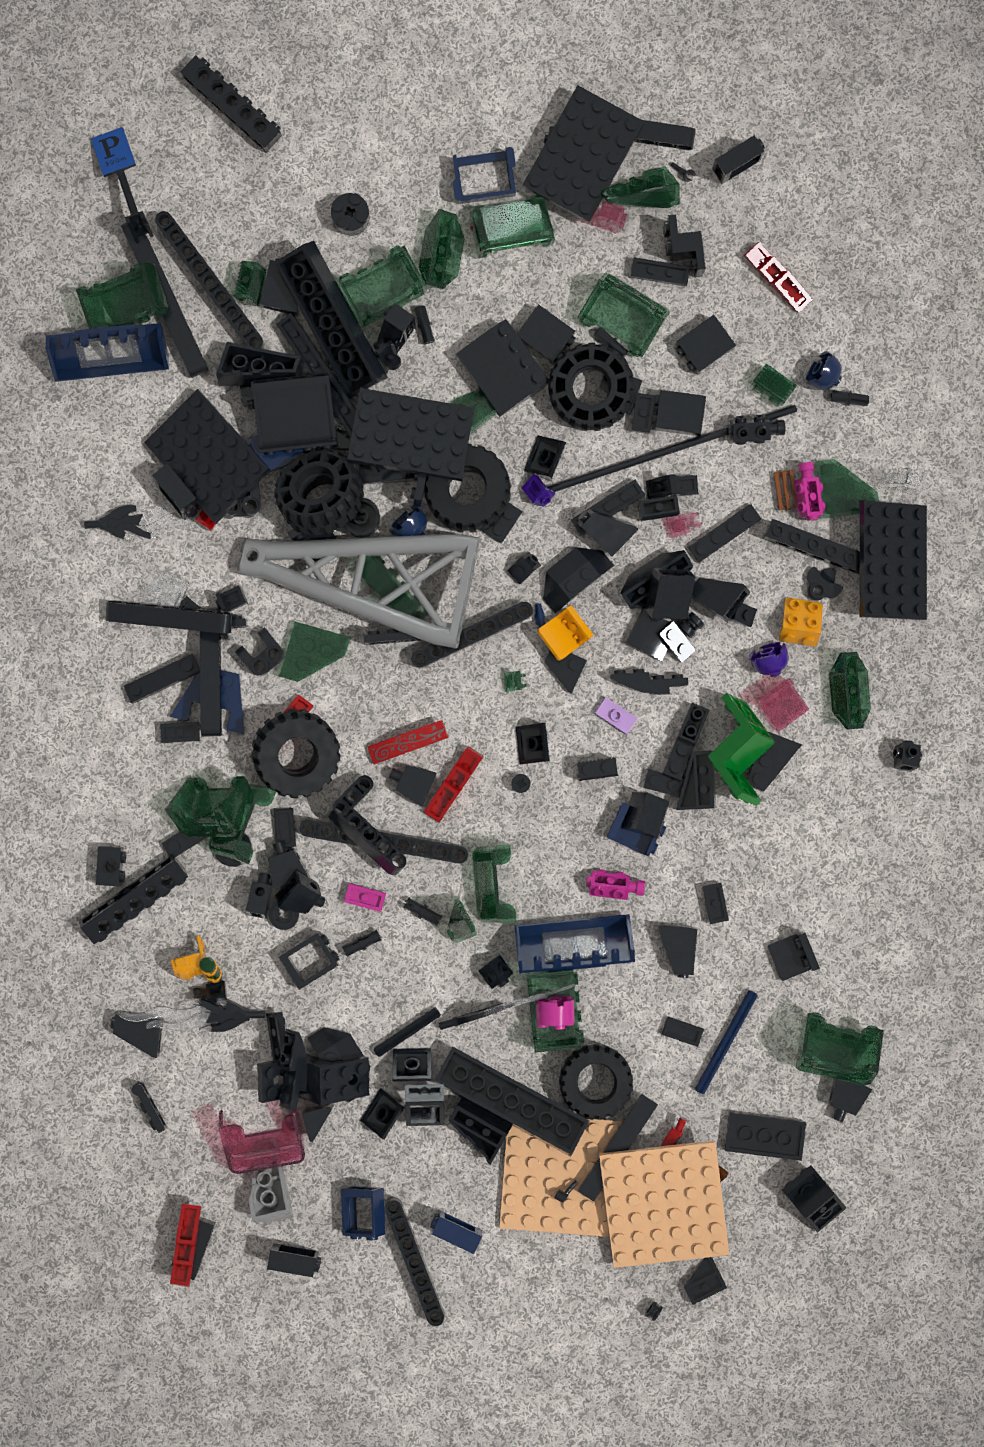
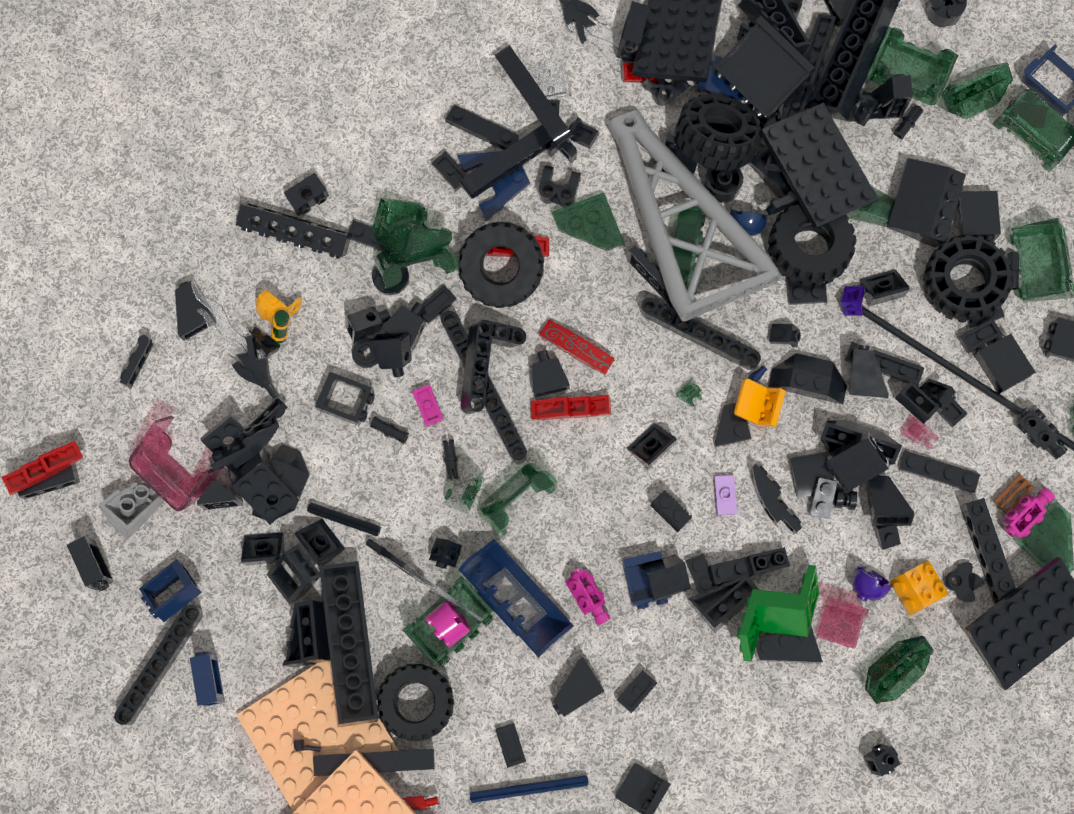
camera: 60 degrees right, 10 degrees down
(518, 783) = (610, 465): black wheel -> none

